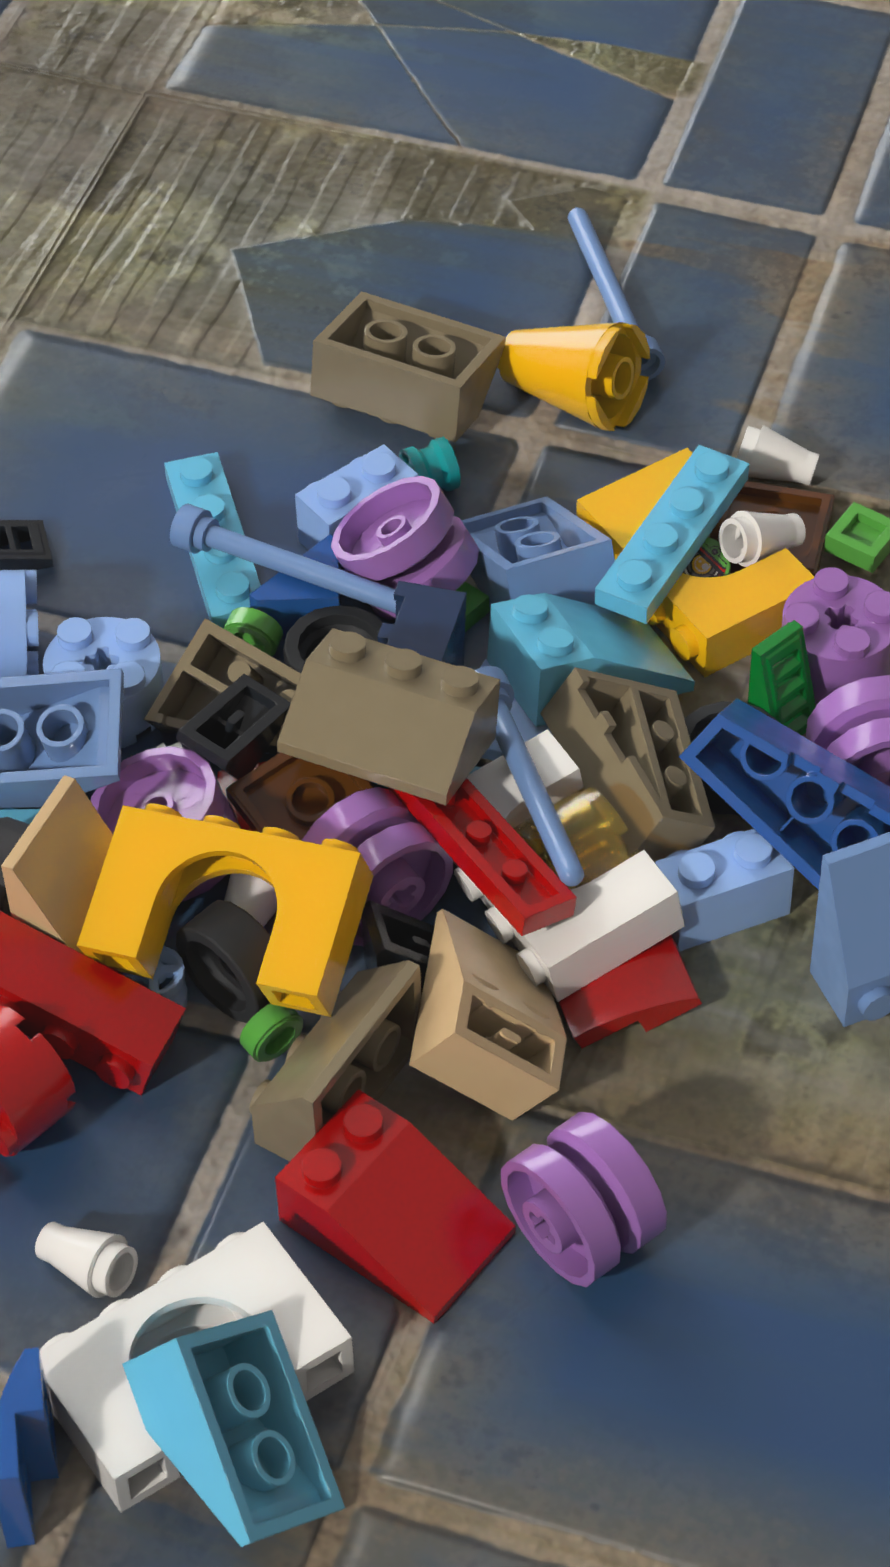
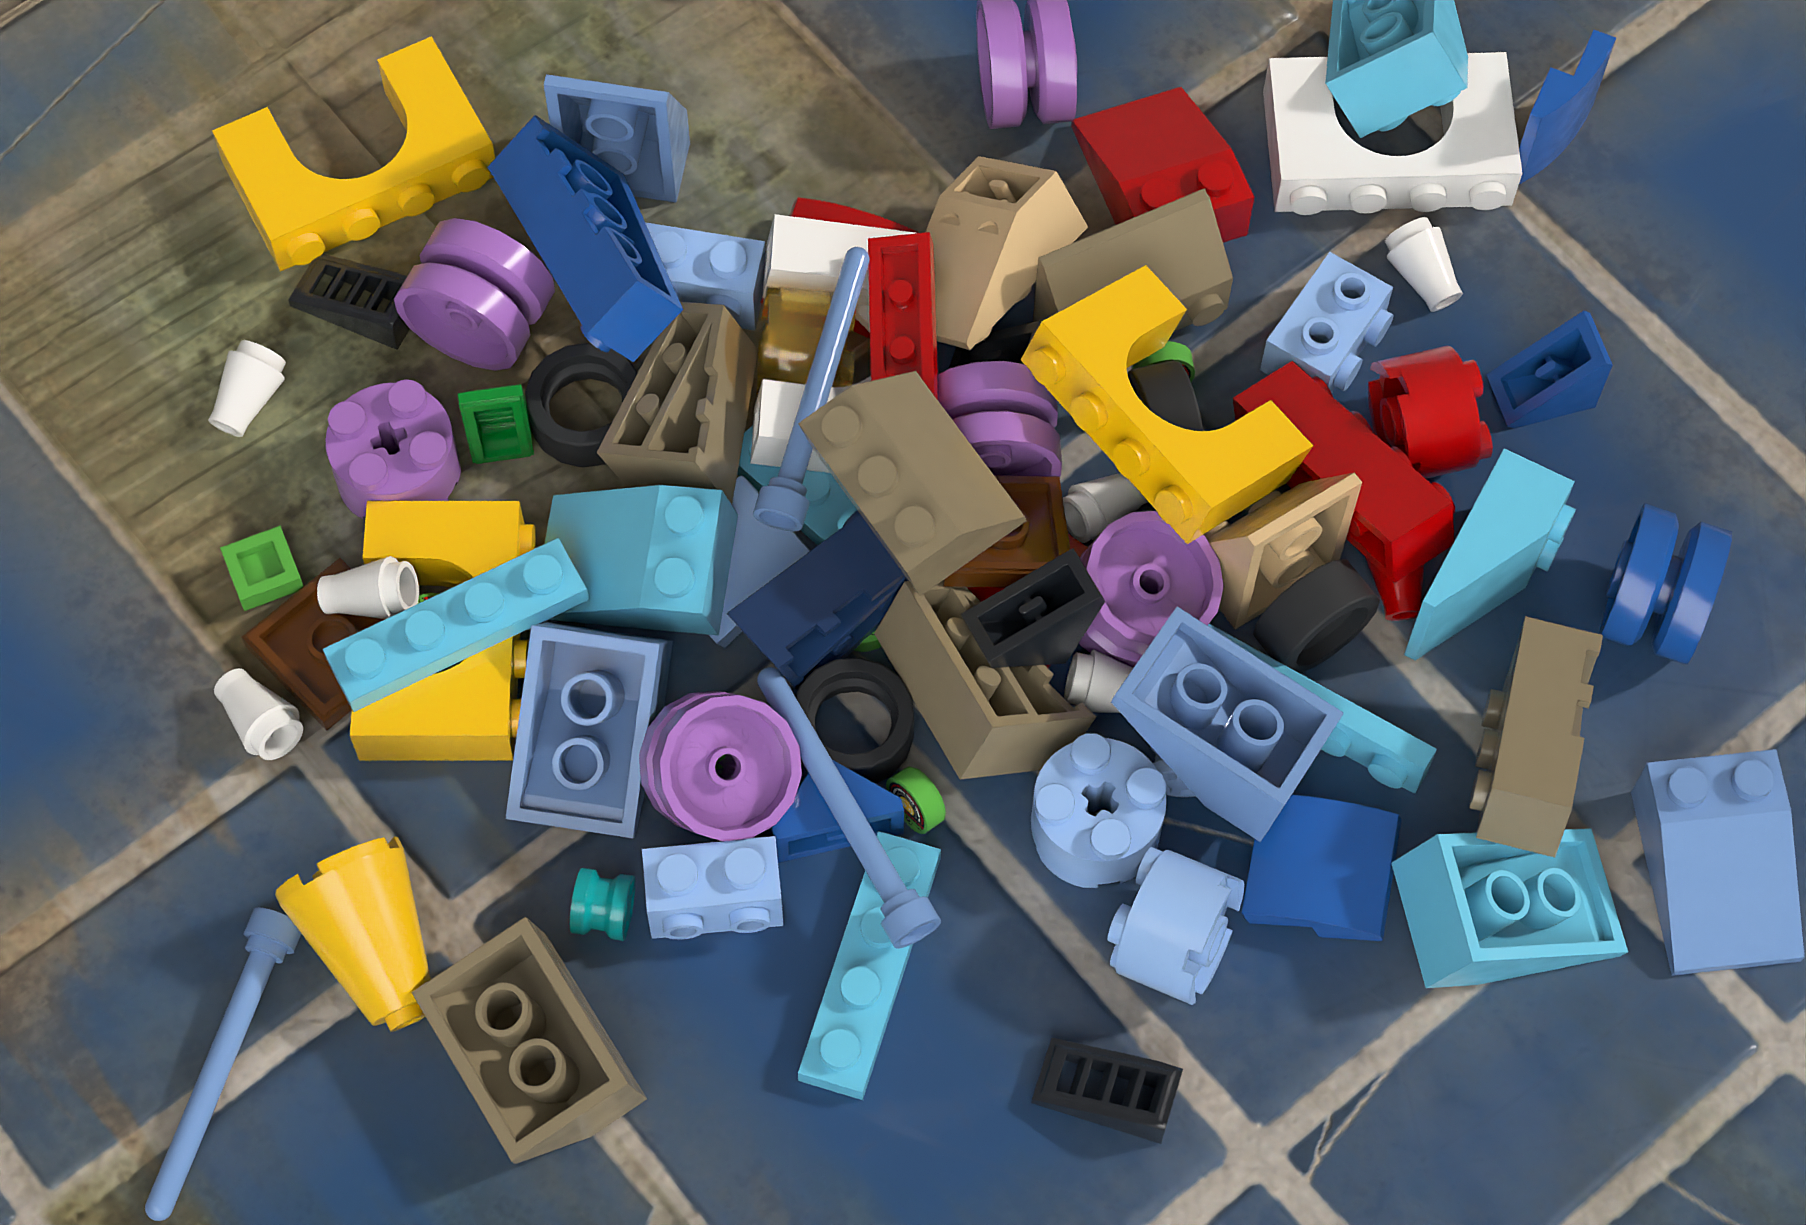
camera: 150 degrees left, 15 degrees up
(141, 1141) = (1331, 323): none -> light blue brick

